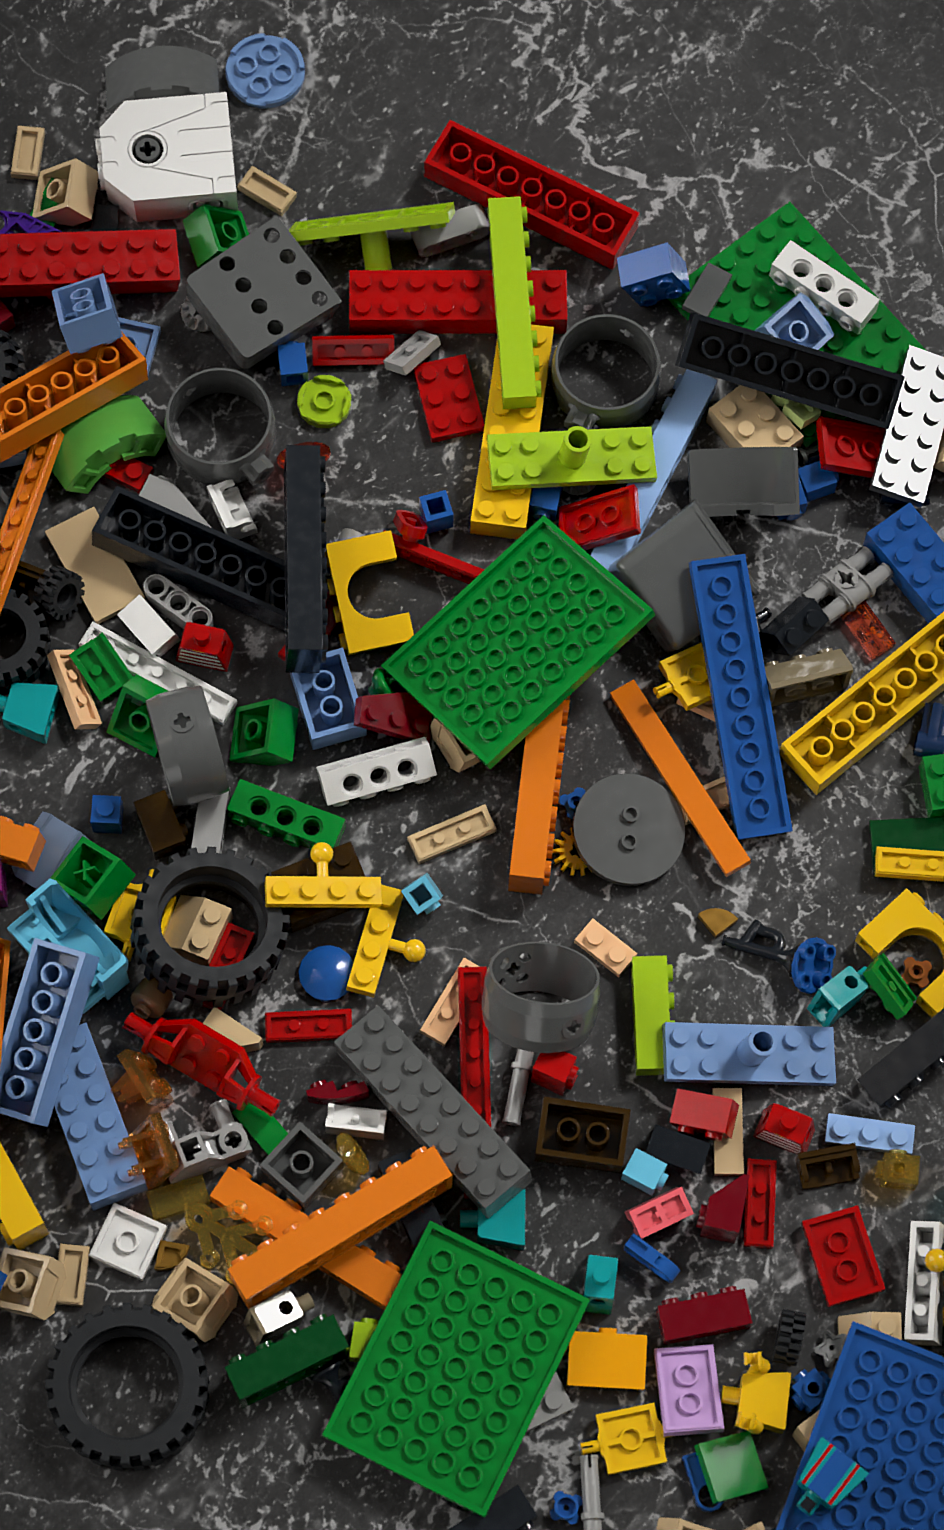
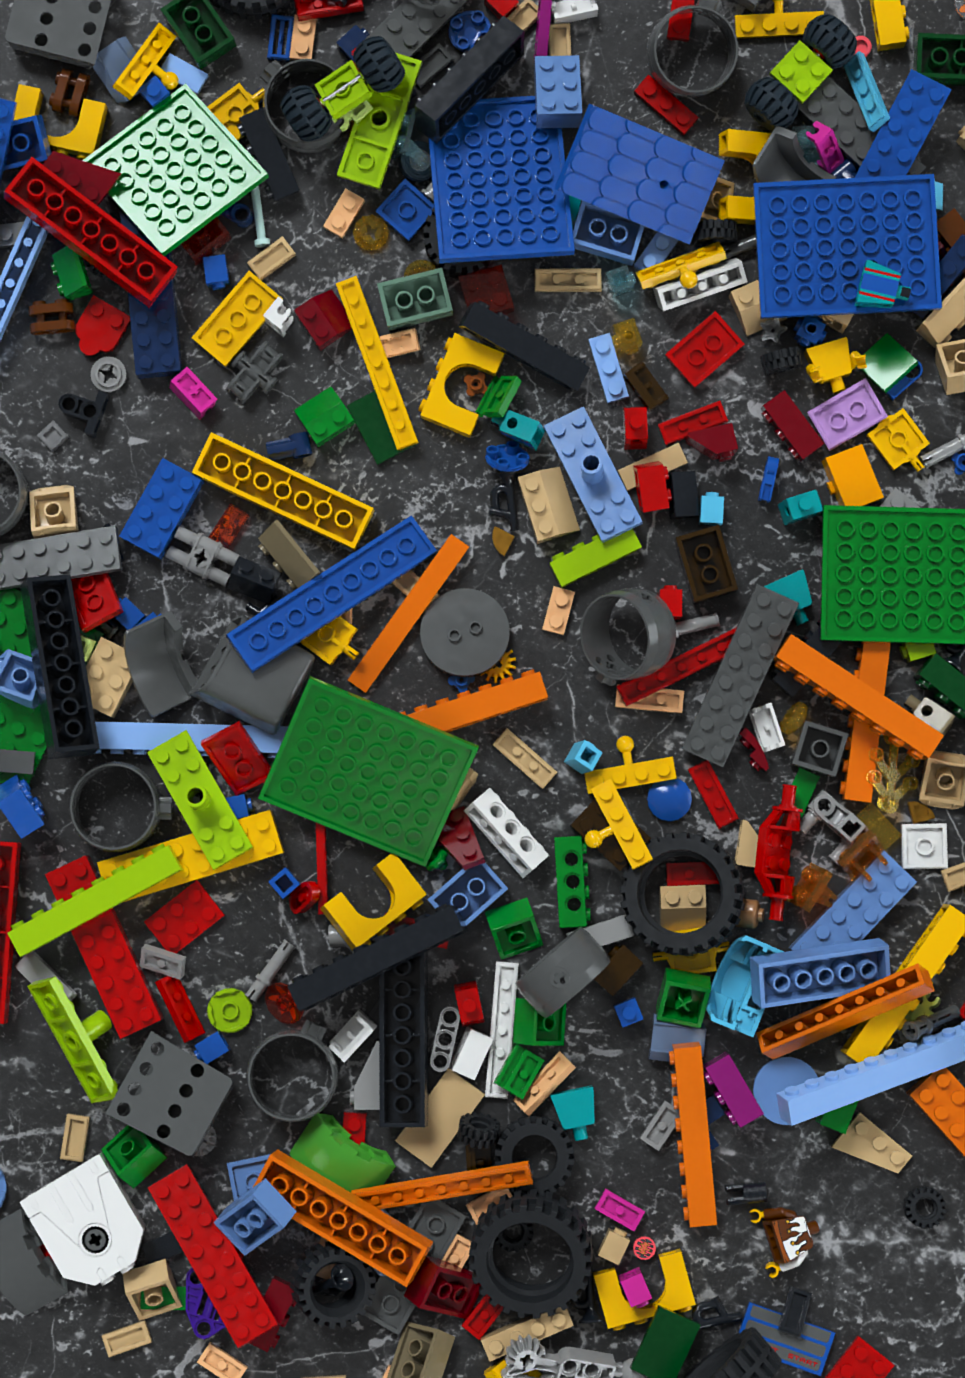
camera: 110 degrees left, 15 degrees up
(341, 449) = (268, 973): none -> light grey pin
(659, 1212) = (734, 488): coral hinge -> none
(736, 989) = (548, 504): none -> tan slope

